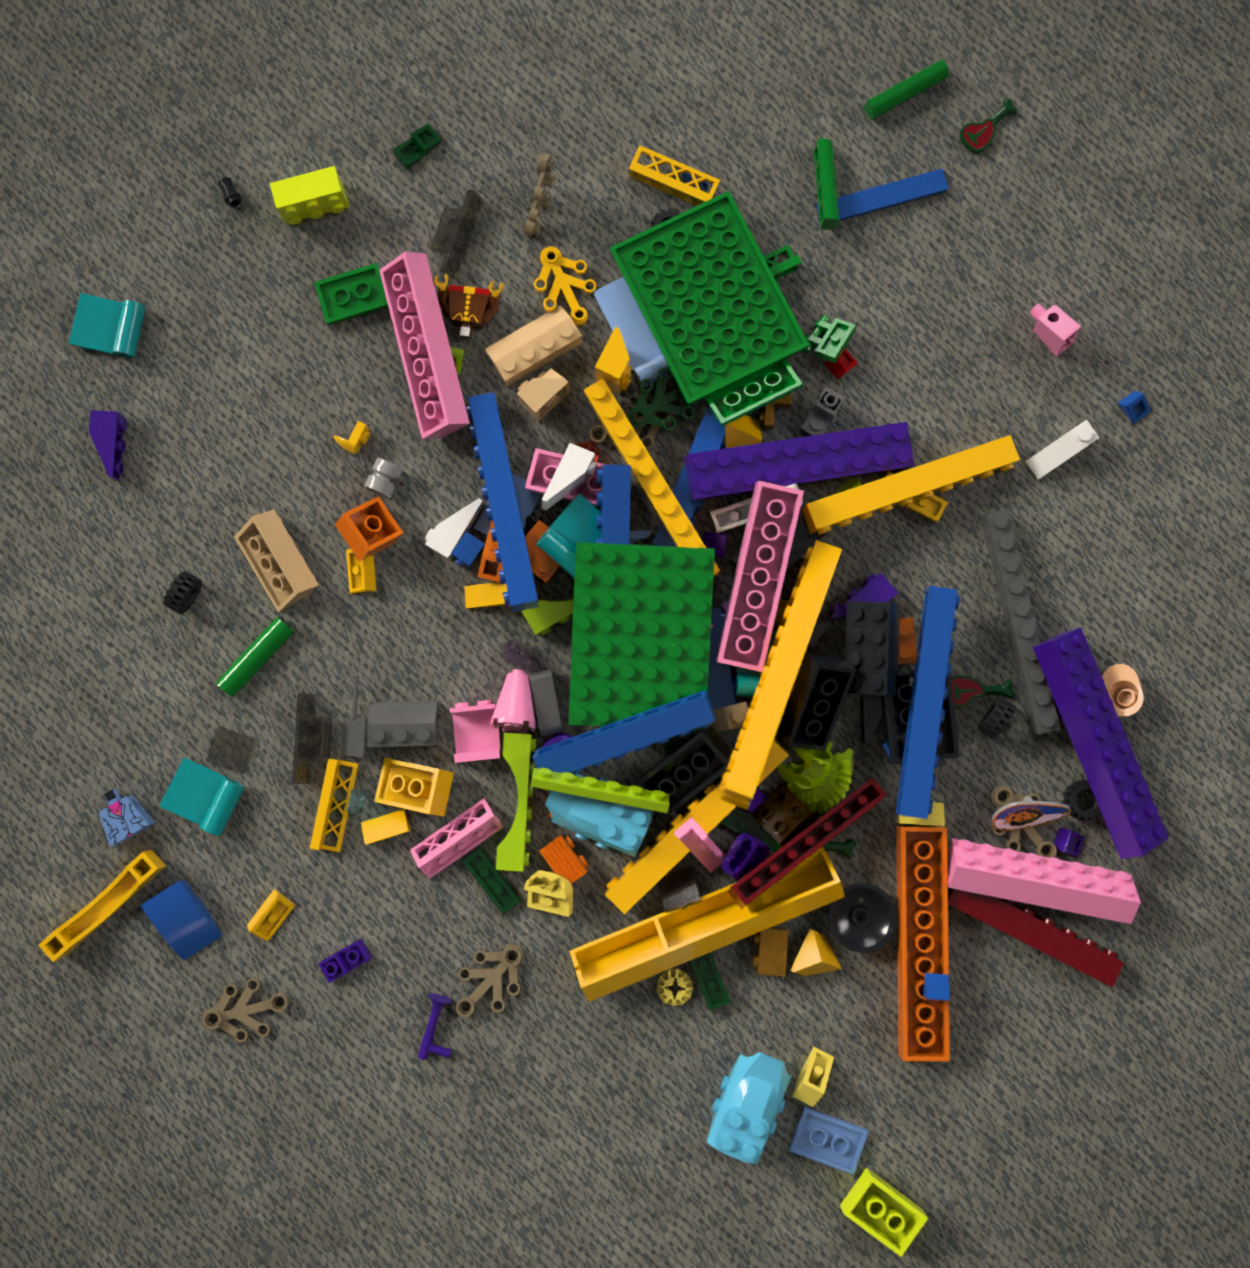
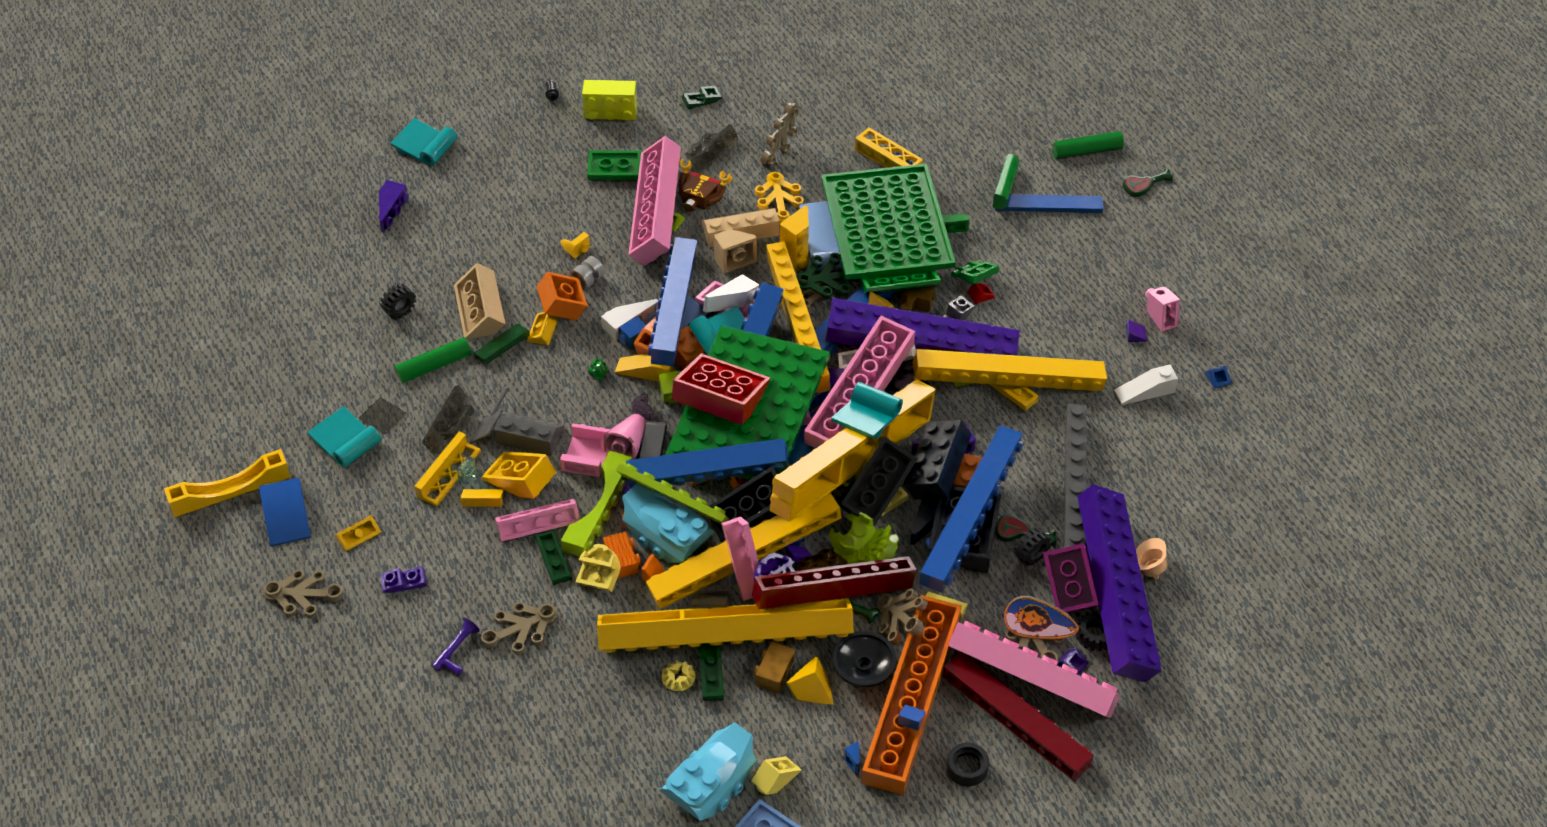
camera: 15 degrees right, 35 degrees down
(123, 818) = (274, 434): medium blue torso -> none
(324, 609) = (501, 343): none -> dark green tile
(448, 614) = (598, 369): none -> green plant
(604, 868) = (651, 568): none -> orange slope
(606, 635) = (719, 388): none -> red slope
(786, 630) = (868, 410): none -> teal door
(883, 854) = (887, 604): none -> dark tan plant
(883, 1032) = (852, 758): none -> blue slope
(1016, 1006) = (960, 777): none -> black tyre
(1029, 369) = (1135, 332): none -> dark purple slope
(1052, 758) = (1071, 578): none -> magenta brick

